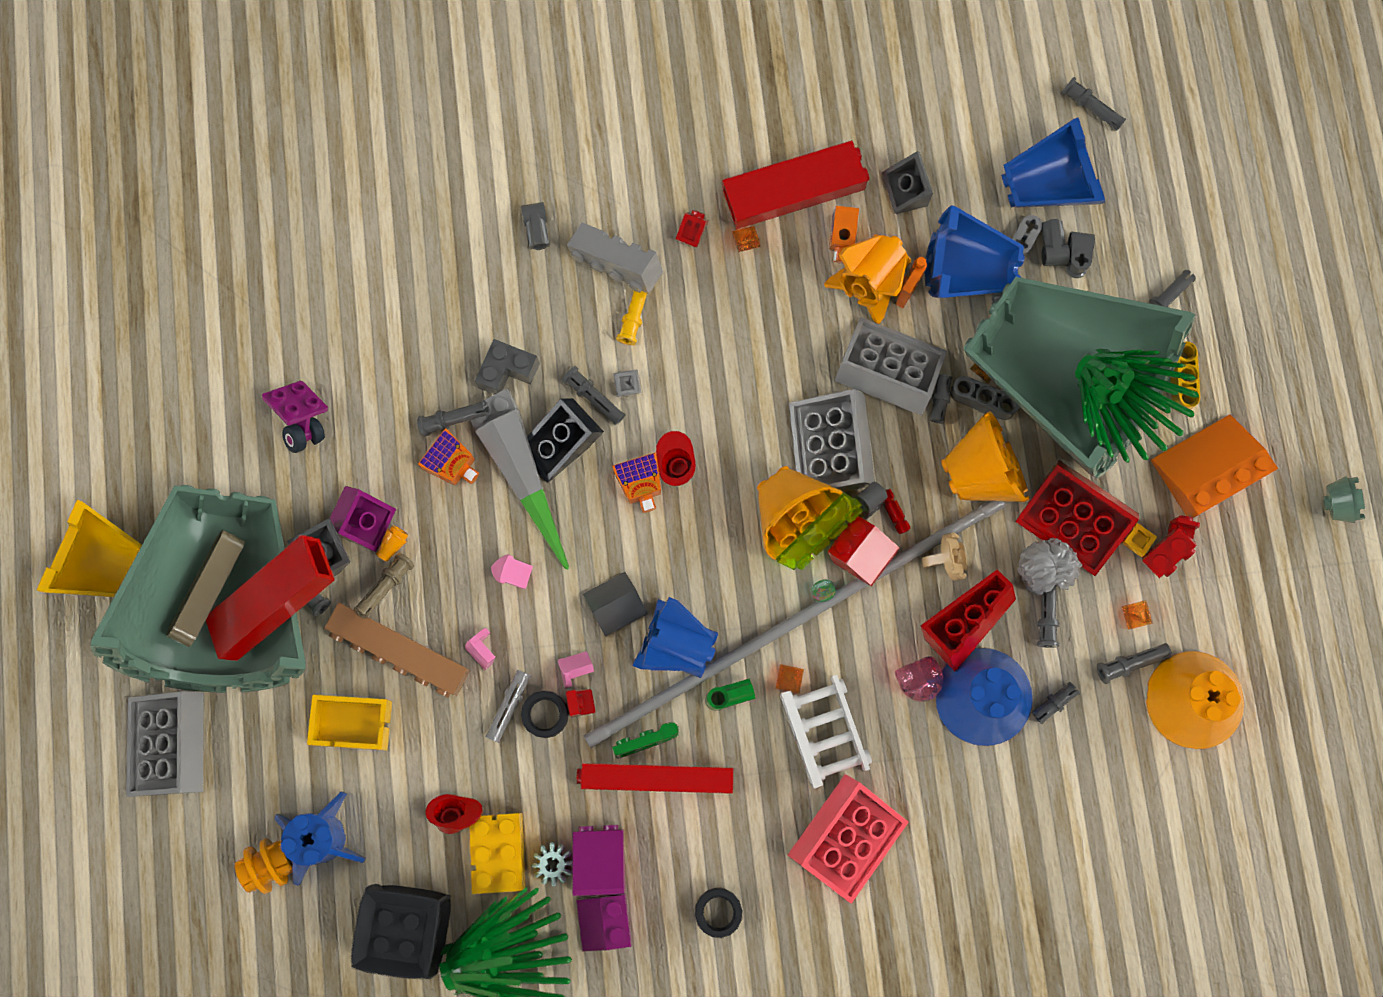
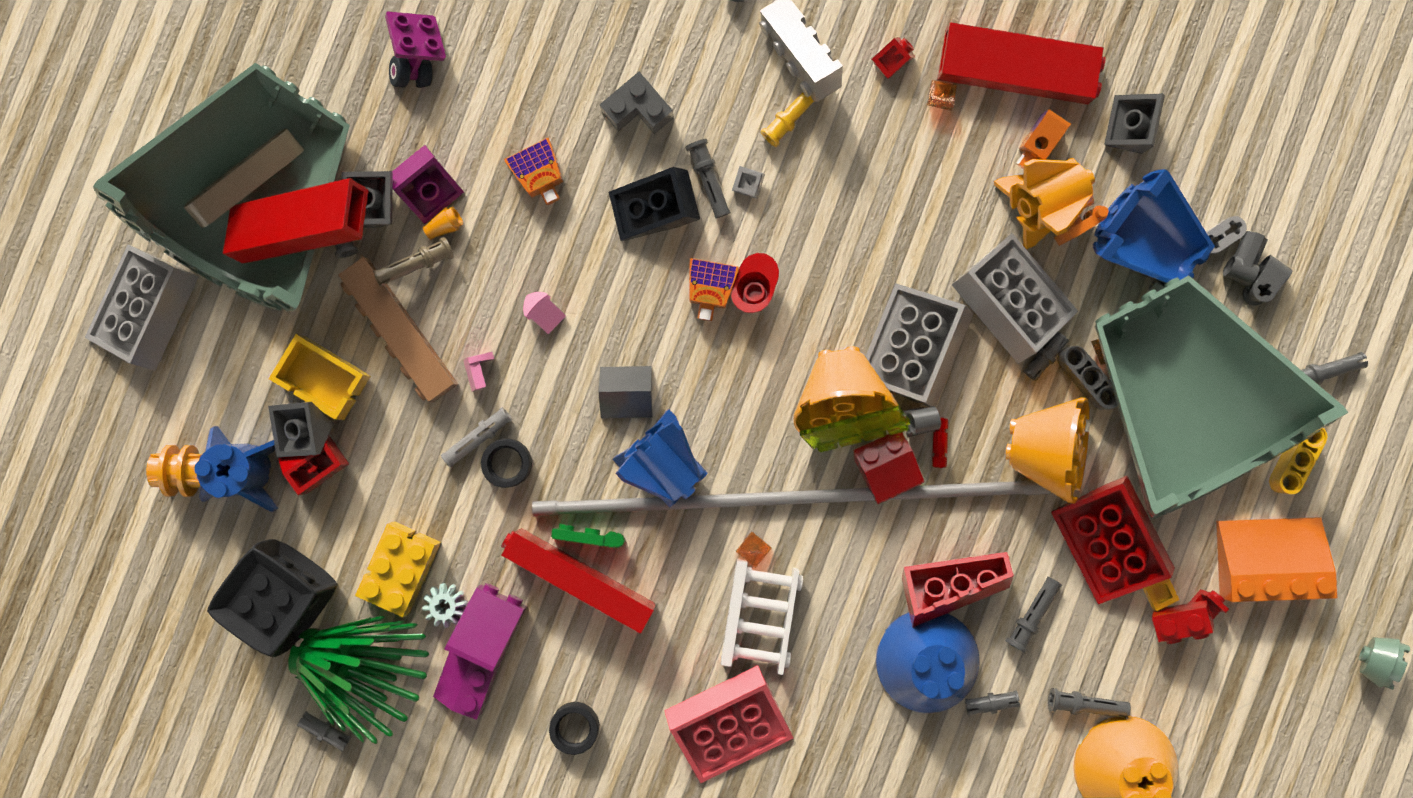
camera: 30 degrees right, 10 degrees up
(91, 556) = (147, 91): yellow cone -> none
(353, 774) = (299, 429): none -> dark grey slope
(375, 798) = (310, 471): none -> red slope
(443, 419) = (551, 128): dark grey pin -> none
(453, 812) = (375, 511): red piece -> none
(509, 447) = (601, 175): light grey plate -> none
(574, 667) = (557, 433): bright pink tile -> none
(580, 702) = (544, 469): red bracket -> none
(732, 694) = (692, 536): green piece -> none
(823, 590) = (830, 483): clear light blue tile -> none
(921, 679) = (876, 617): clear pink piece -> none
(952, 557) = (971, 516): tan tile -> none
(1048, 565) = (1058, 573): light grey hair -> none
(1054, 172) = (1289, 186): blue cone -> none
(1085, 98) = (1365, 124): dark grey pin -> none
(1111, 382) = (1223, 430): green plant -> none
(1137, 614) = (1117, 662): clear orange tile -> none

